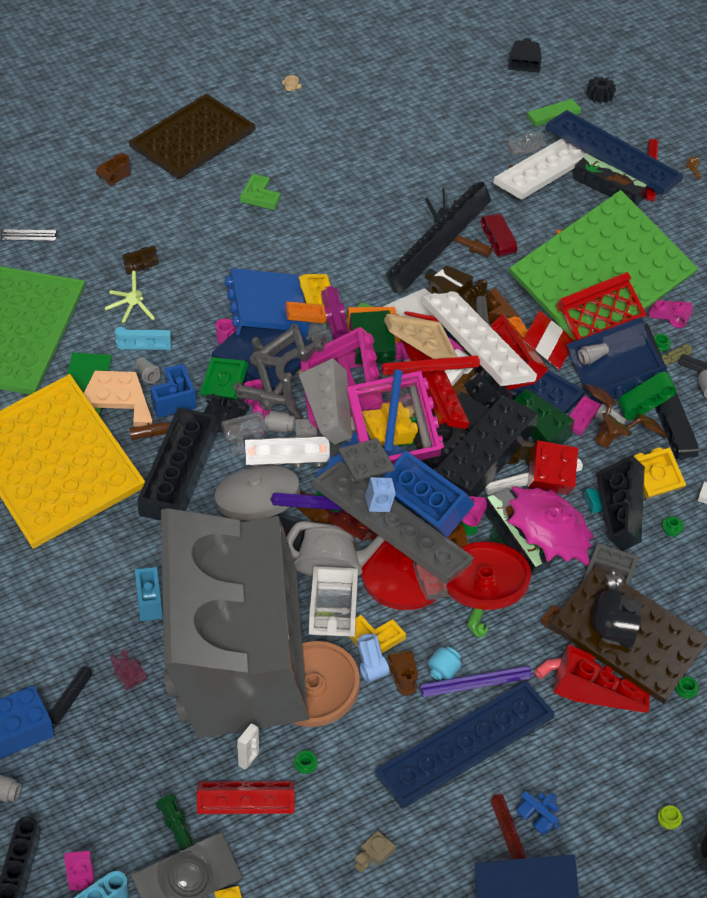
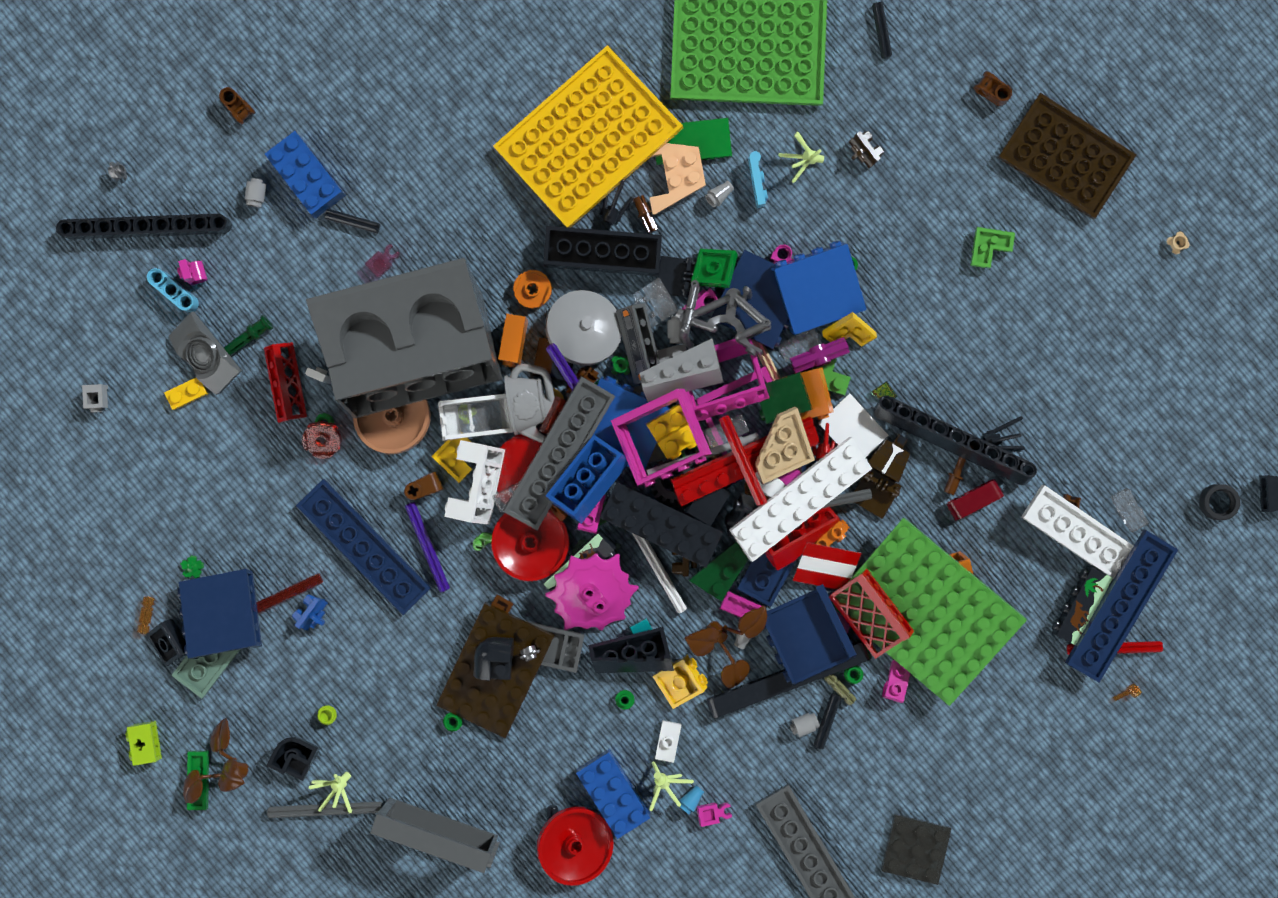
camera: 80 degrees right, 40 degrees up
(139, 456) = (611, 214): none -> black plant
(148, 594) = (465, 251): dark azure brick -> none
(174, 393) = (687, 230): blue brick -> none
(305, 312) = (806, 328): orange plate -> none
(306, 474) = (616, 369): none -> green plate
(316, 766) = (325, 430): none -> clear red plate
(366, 460) = (609, 420): dark grey hinge -> none
(373, 663) = (425, 458): light blue piece -> none
(374, 850) = (257, 491): dark tan plate -> none
(380, 284) = (884, 390): none -> clear green tile
(380, 494) = (573, 439): light blue brick -> none
(393, 408) = (661, 435): blue bar -> none
(440, 610) = (484, 486): none -> white plate
(444, 663) = (434, 519): medium azure head -> none
(499, 306) = (857, 518): reddish brown slope -> none
(530, 82) = (1234, 502): none -> black tyre
(545, 114) = (1189, 534): bright green tile -> none
(547, 667) = (454, 608): coral arm -> none
(553, 467) = (660, 587): red brick -> none
(590, 683) = (441, 642): red wedge -> none
(591, 353) = (816, 610): light grey cone -> none
(601, 89) = (1229, 582): black gear -> none
(647, 395) = (767, 667): green beam -> none

